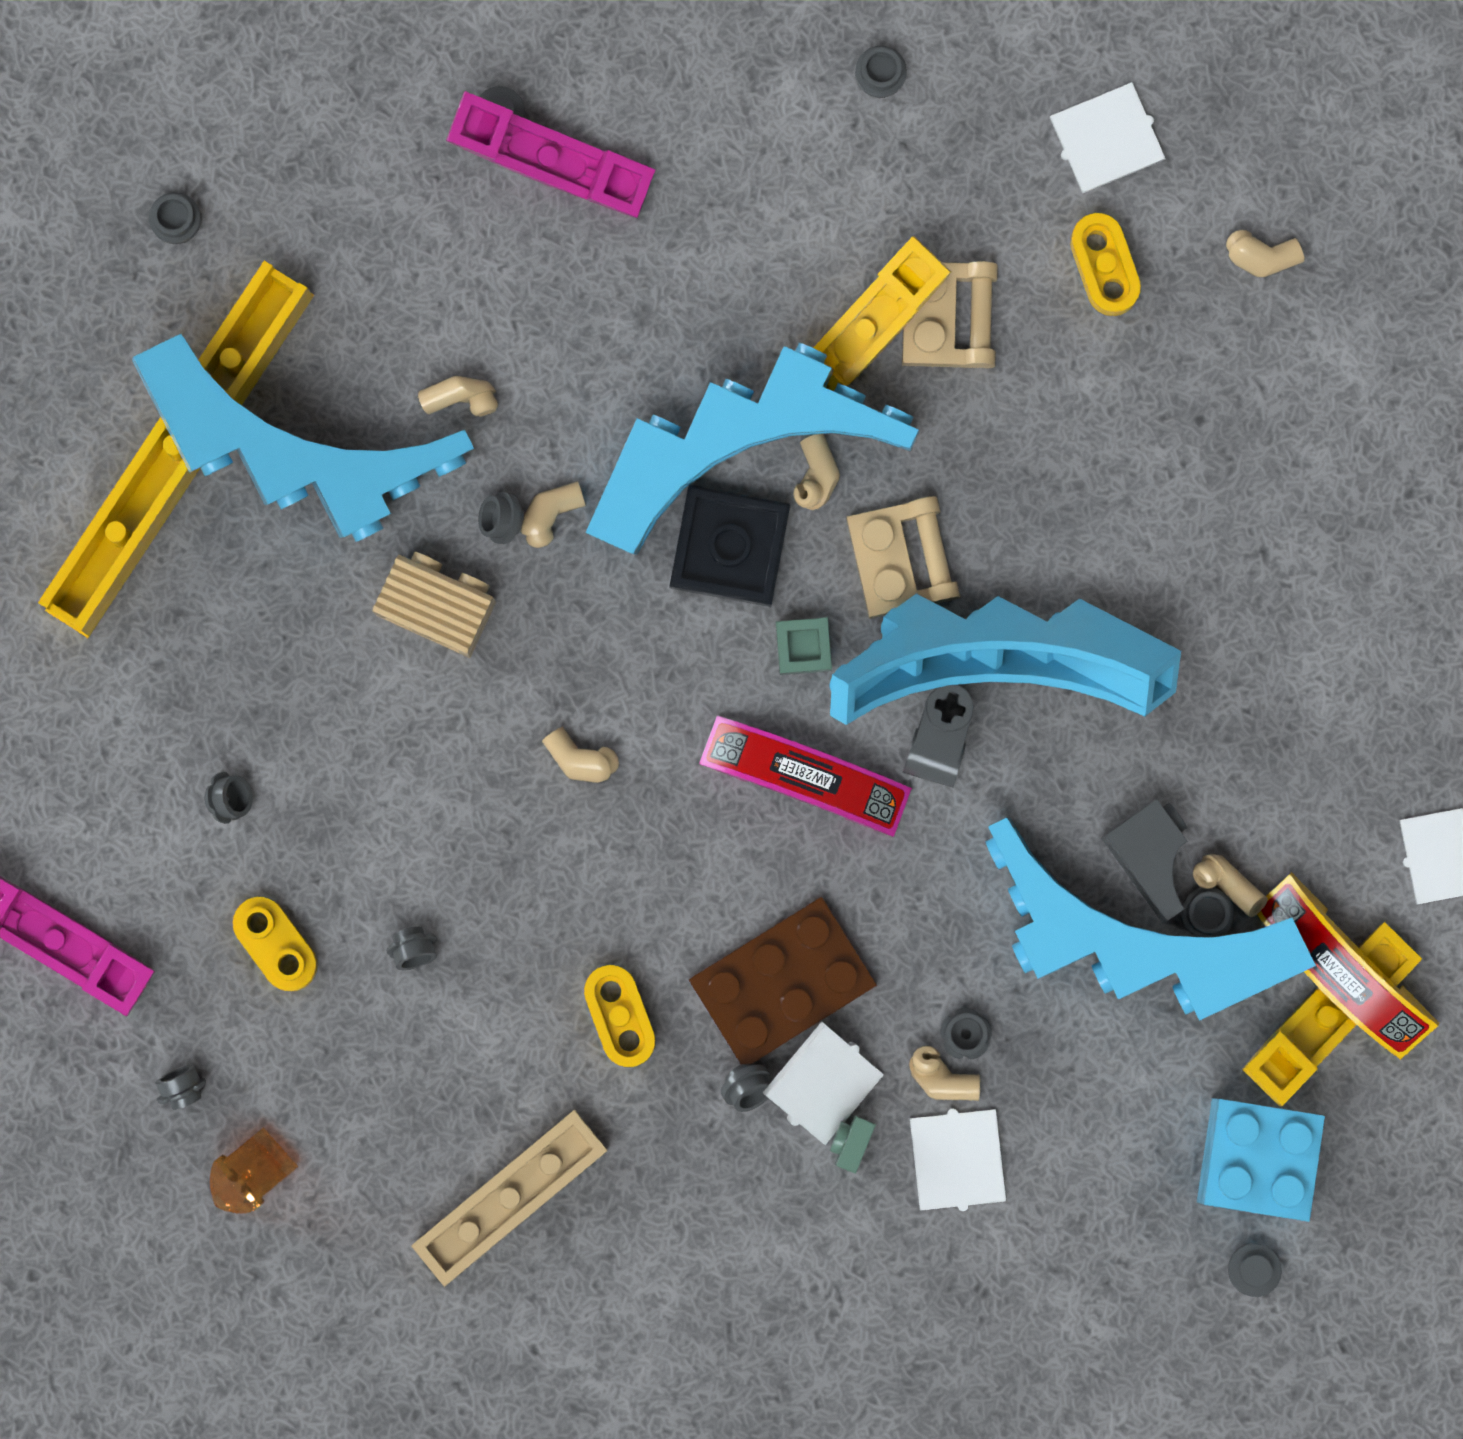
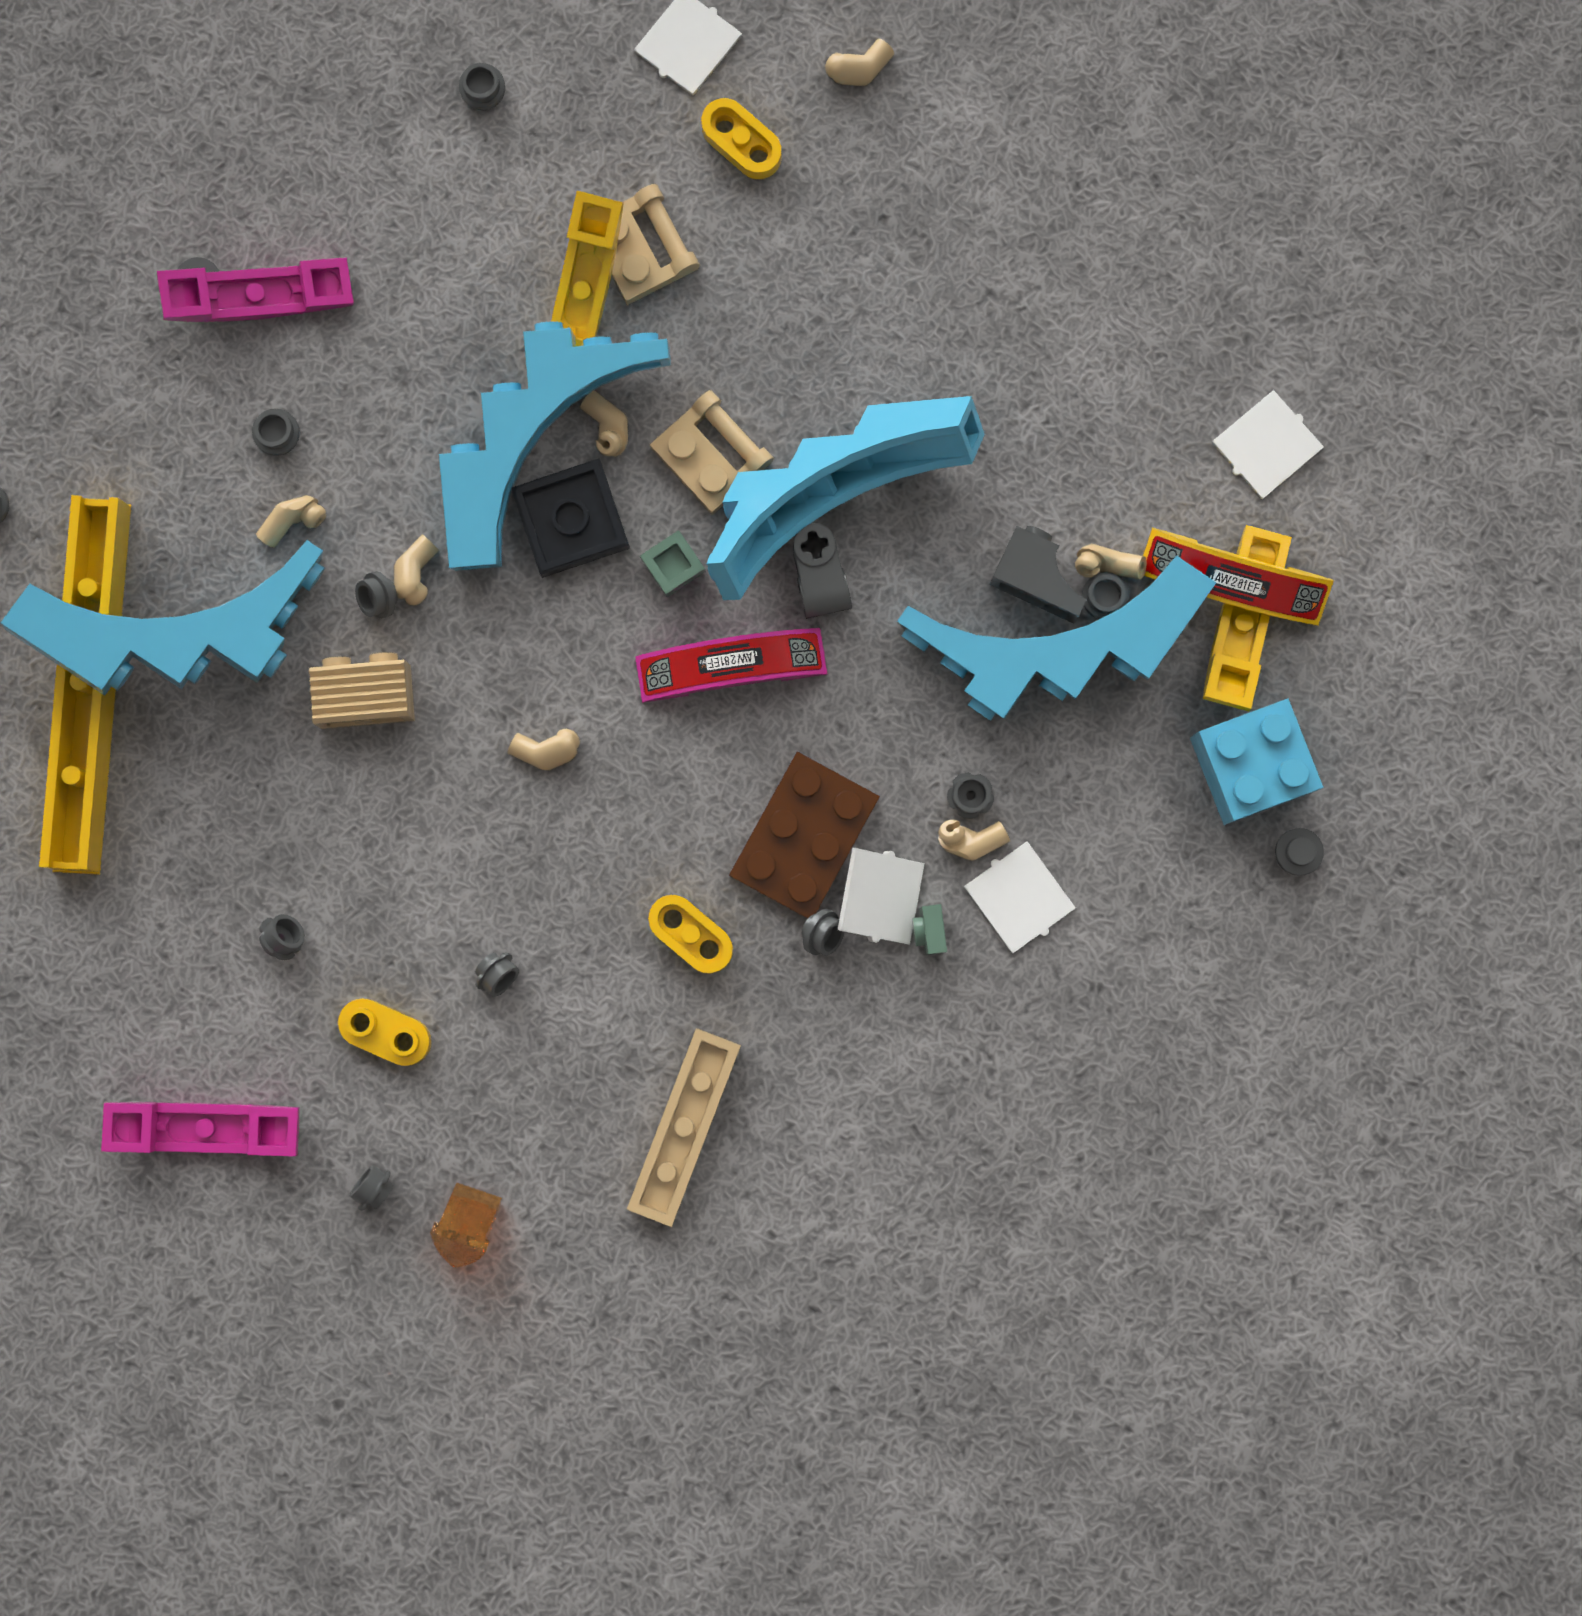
camera: 30 degrees left, 0 degrees up
(492, 302) = (275, 432): none -> dark grey plate

